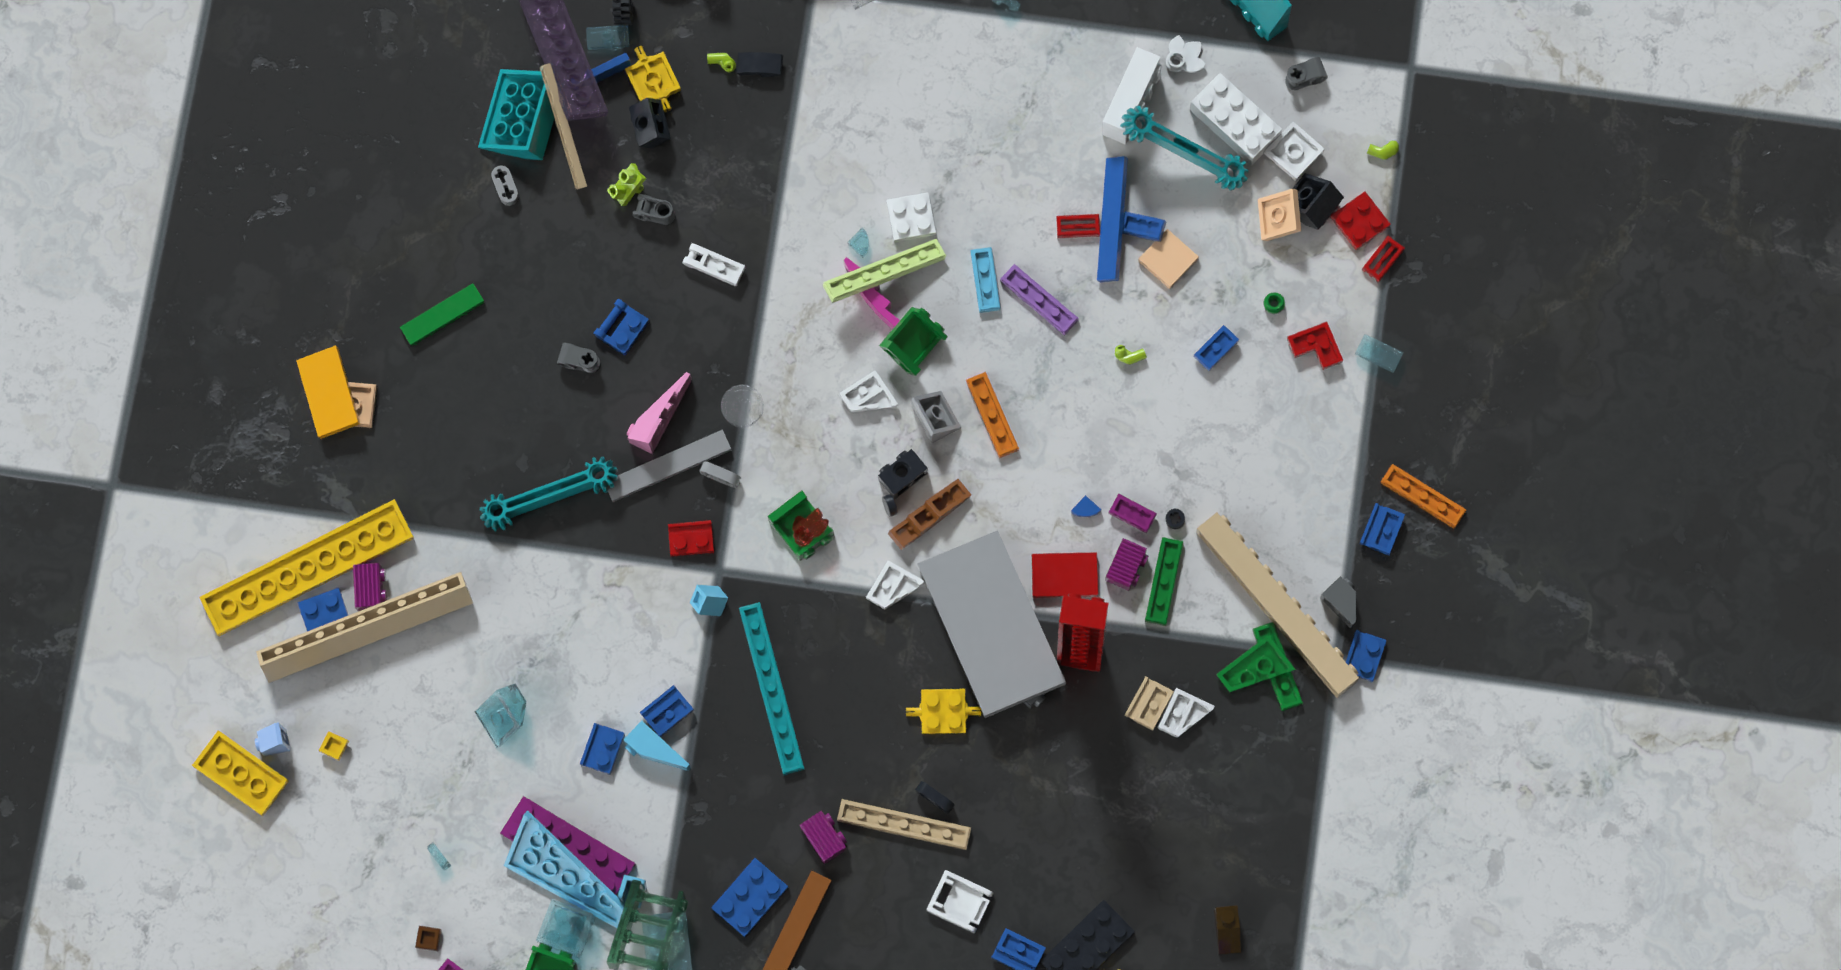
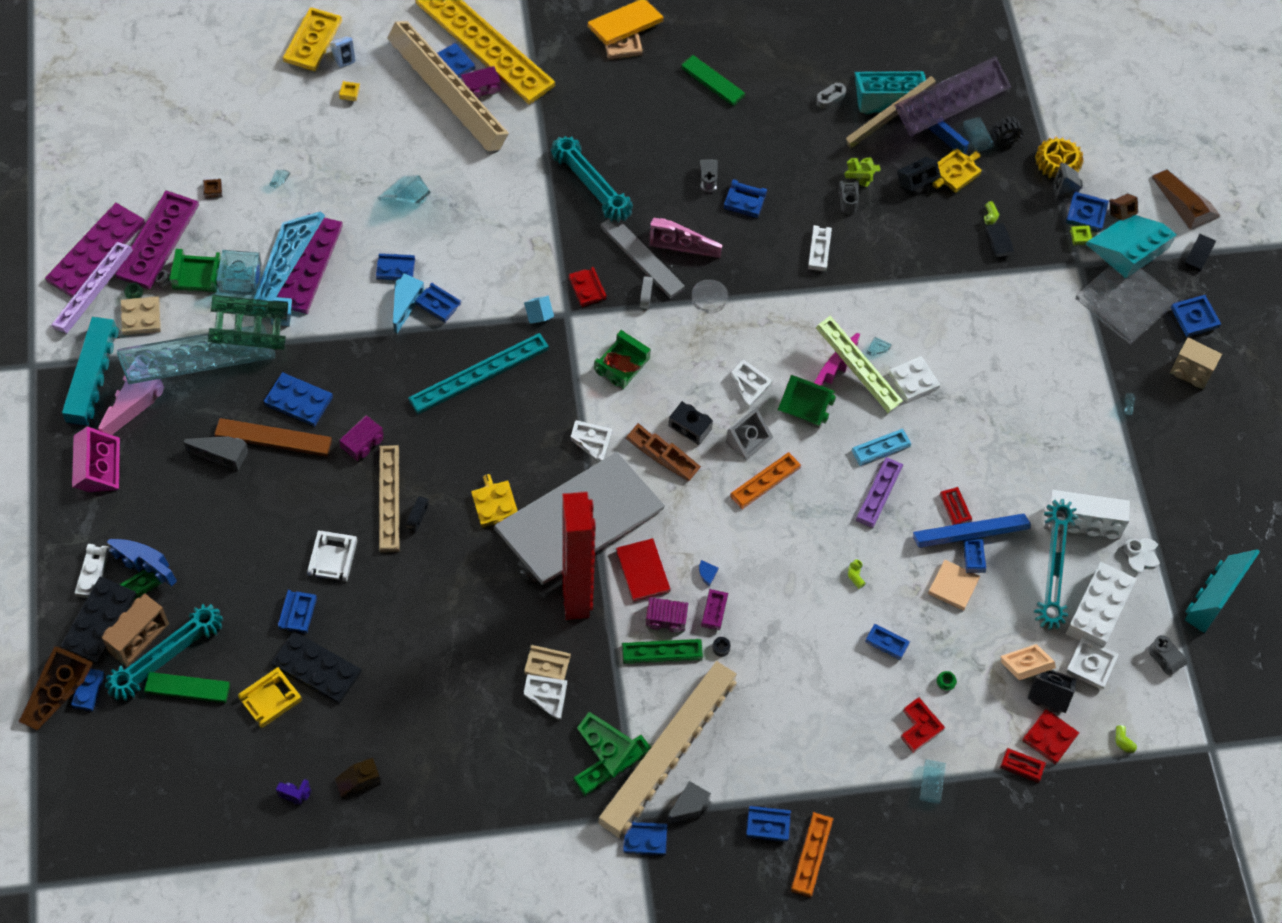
camera: 65 degrees right, 15 degrees down
(889, 505) = (660, 420): black tile -> none

